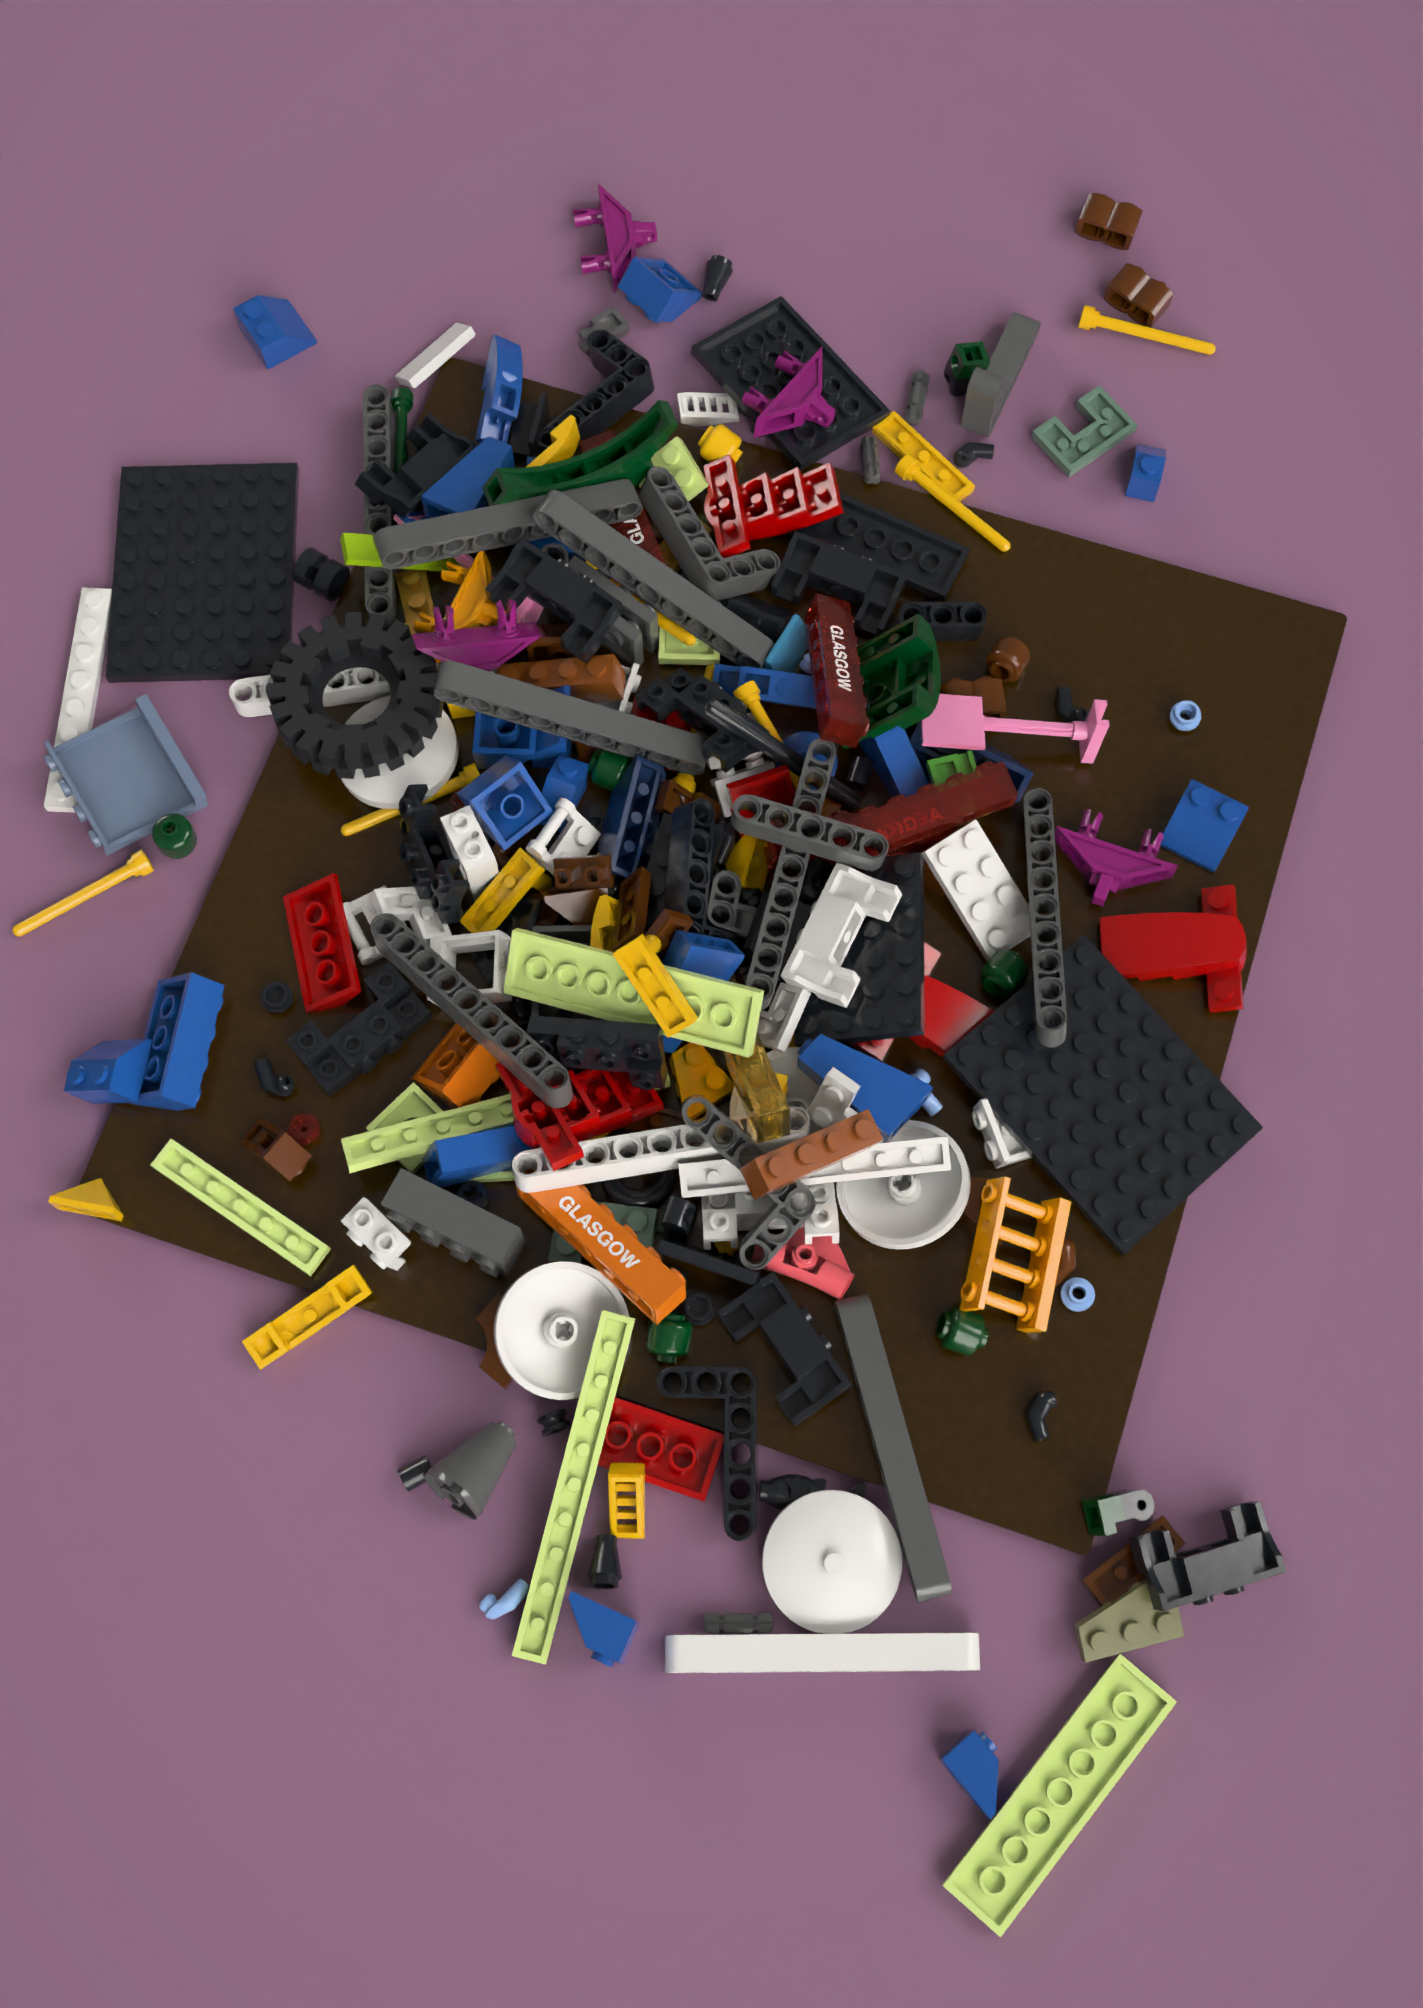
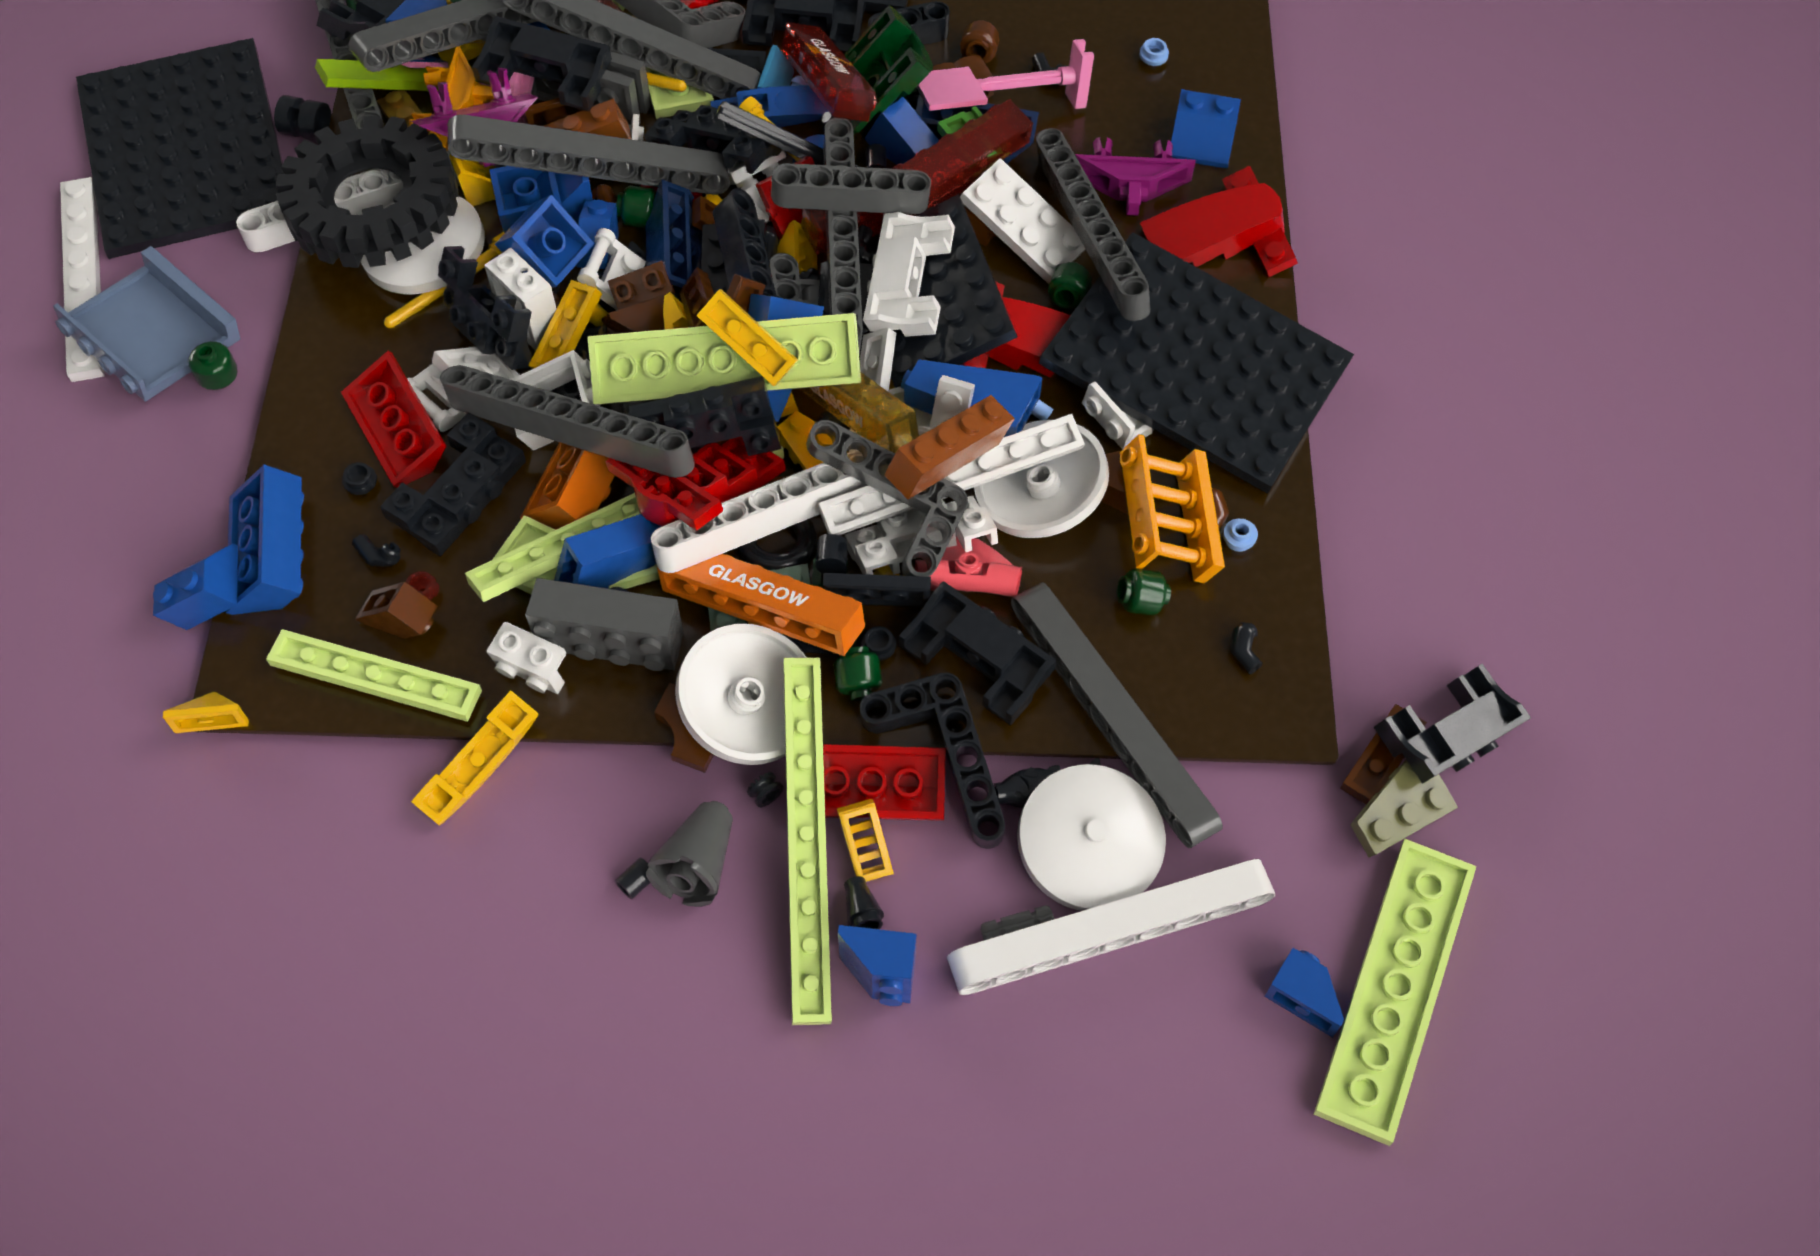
camera: 20 degrees left, 10 degrees down
(137, 865) = (179, 403): yellow piece -> none
(508, 1602) = (771, 974): light blue arm -> none
(1107, 1509) = (1350, 709): leg -> none

